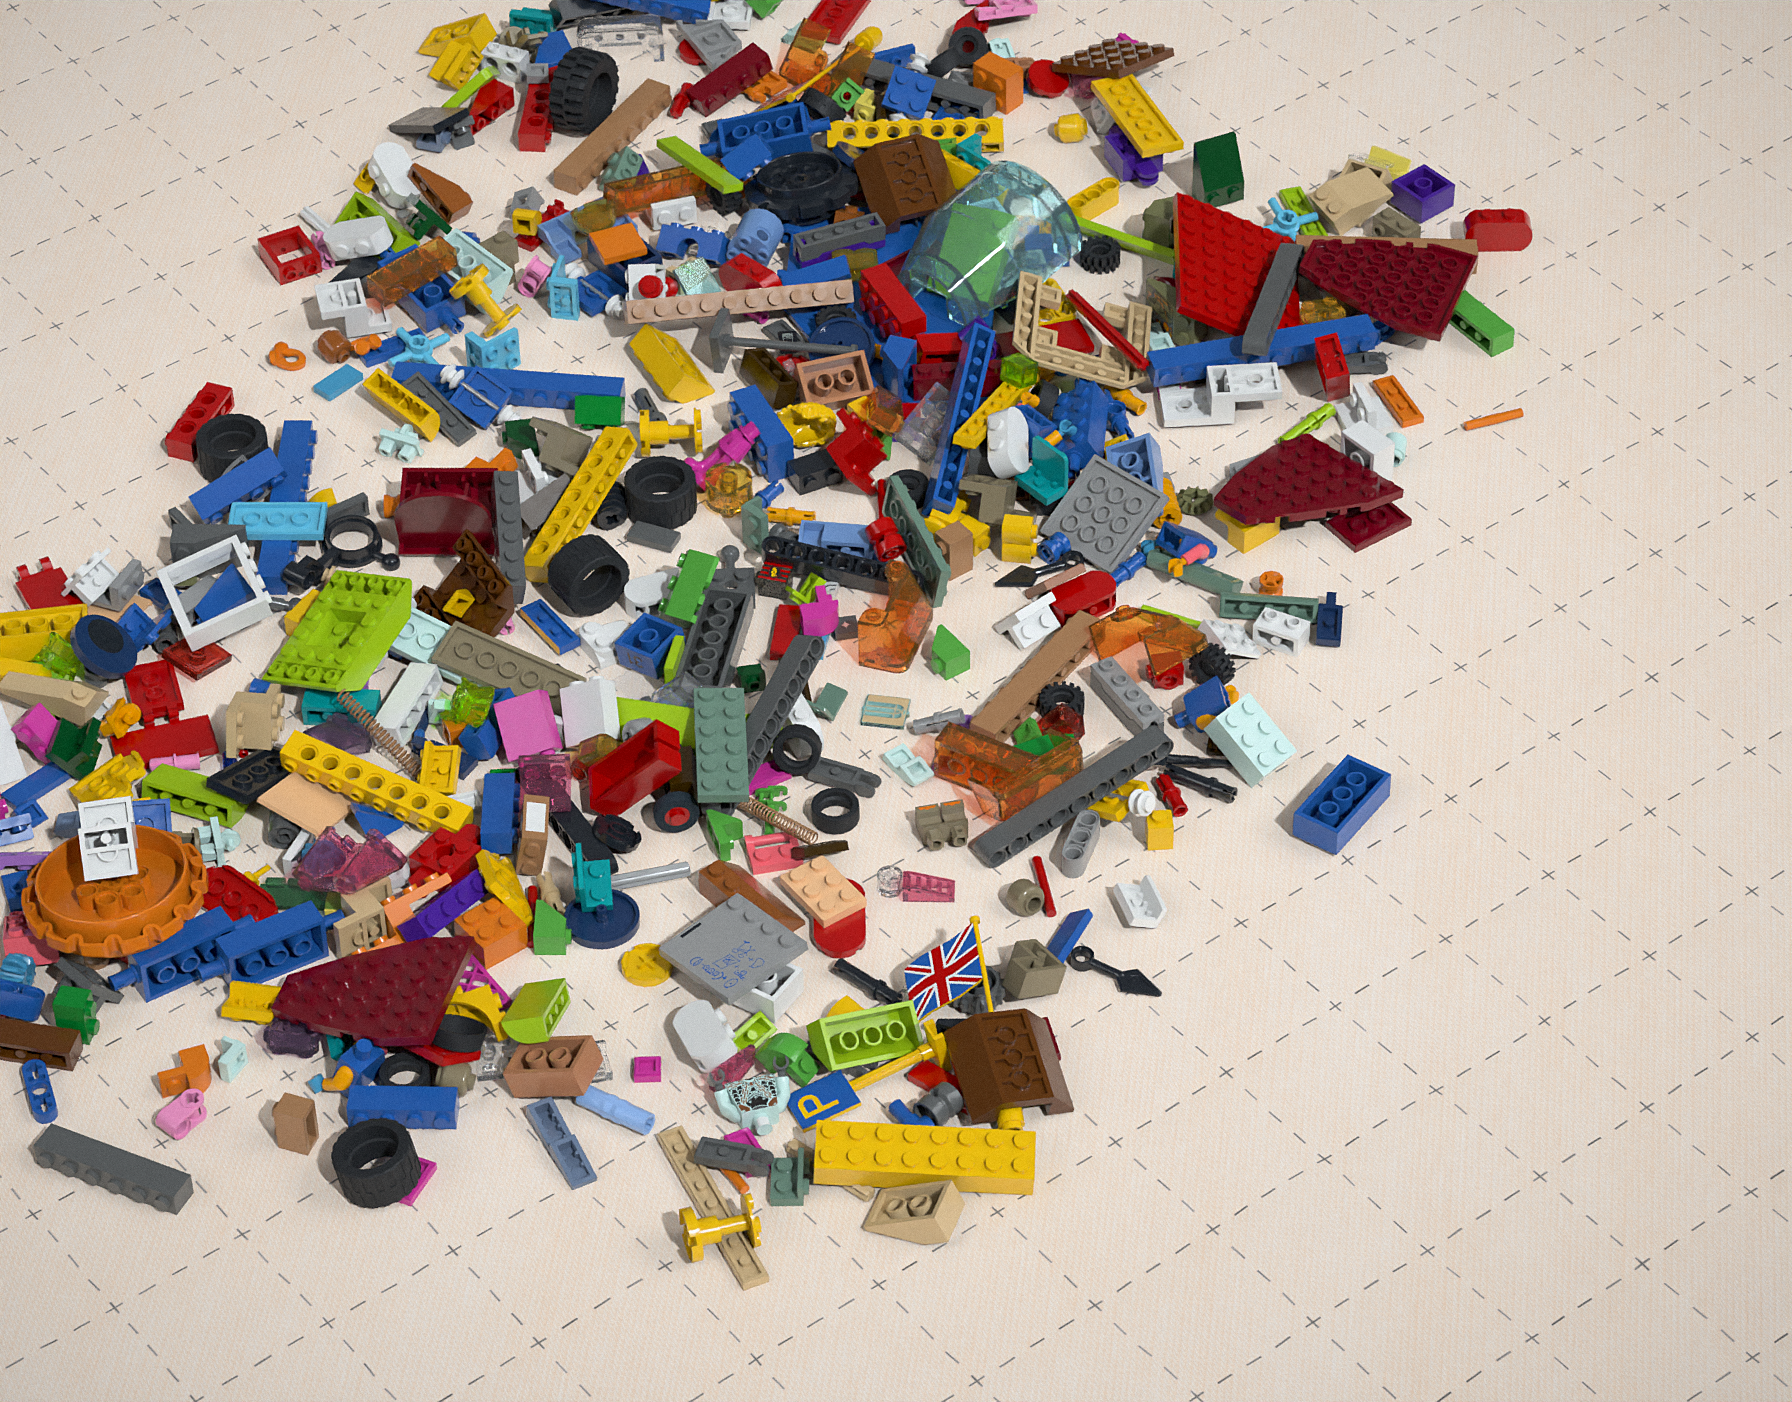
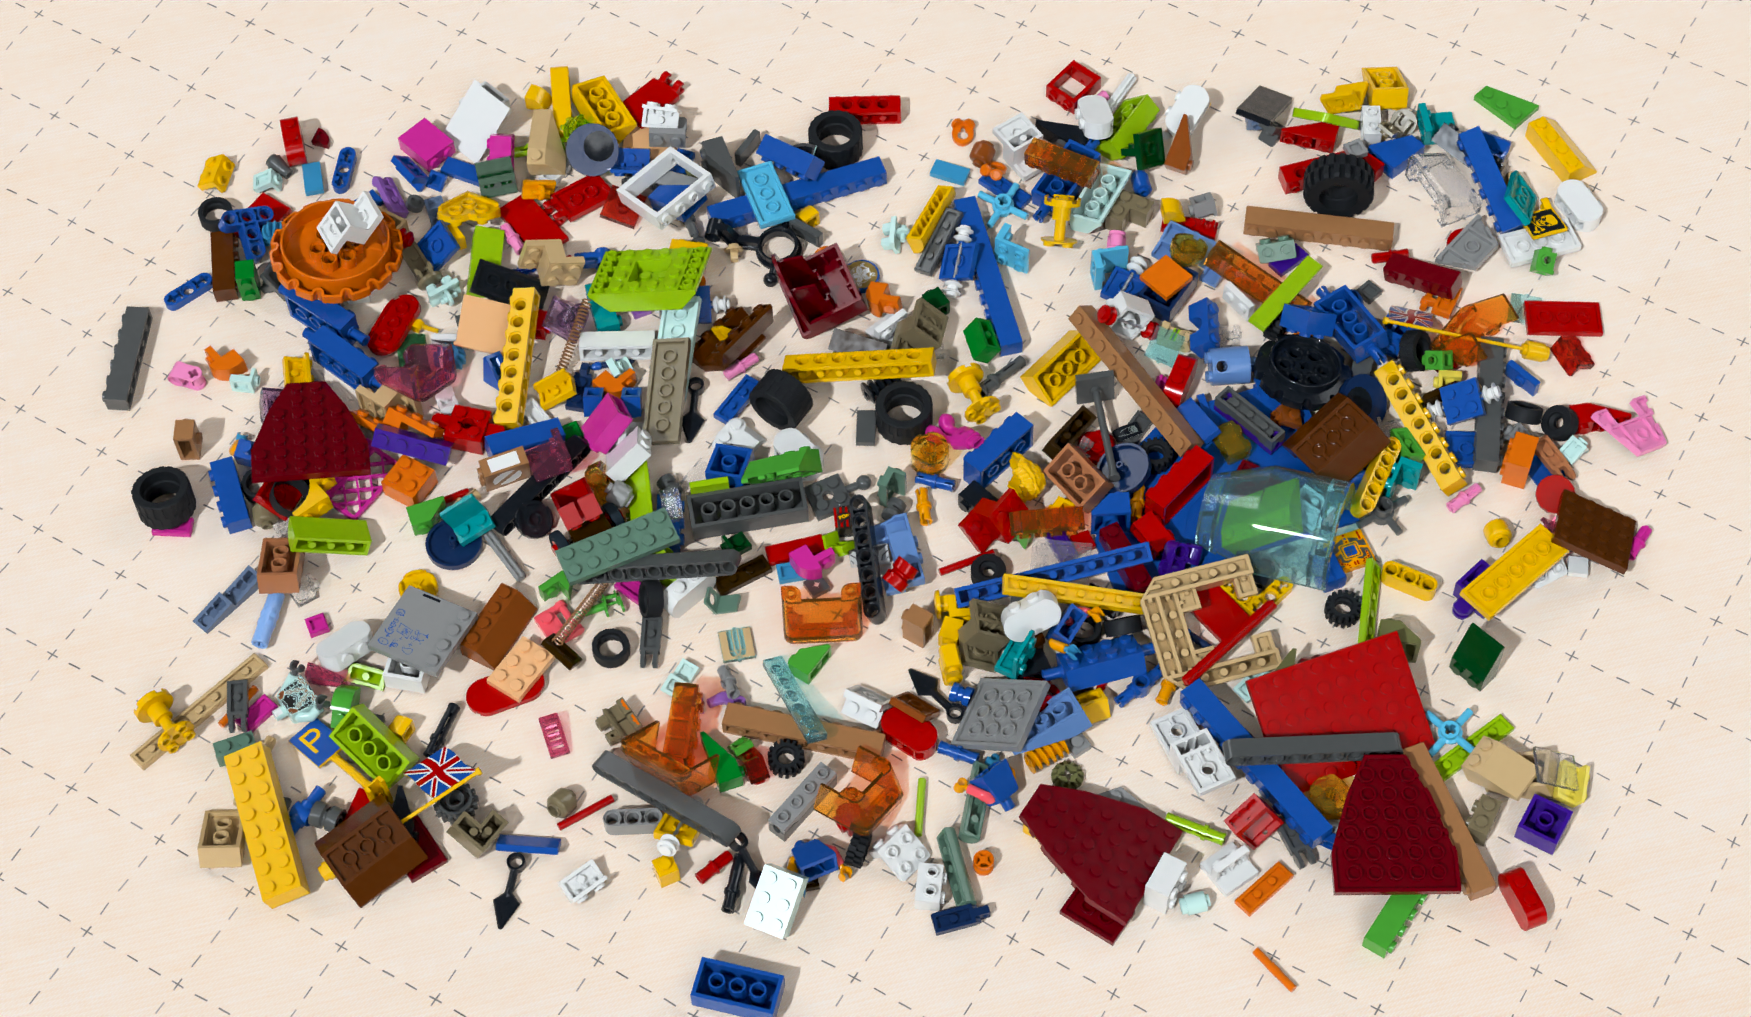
camera: 70 degrees right, 15 degrees up
(52, 840) = (415, 203): none -> dark grey tile
(469, 704) = (608, 378): clear neon green hair -> none
(504, 883) = (451, 470): yellow wing -> none
(508, 530) = (795, 334): dark grey brick -> none
(889, 22) = (1571, 354): none -> clear red bracket
(889, 881) = (548, 704): clear wheel -> none
(921, 549) = (918, 593): sand green plate -> none
(997, 666) = (795, 699): none -> clear light blue plate
(1014, 139) = (1463, 498): none -> bright pink axle
(1019, 370) = (1130, 595): clear neon green brick -> none

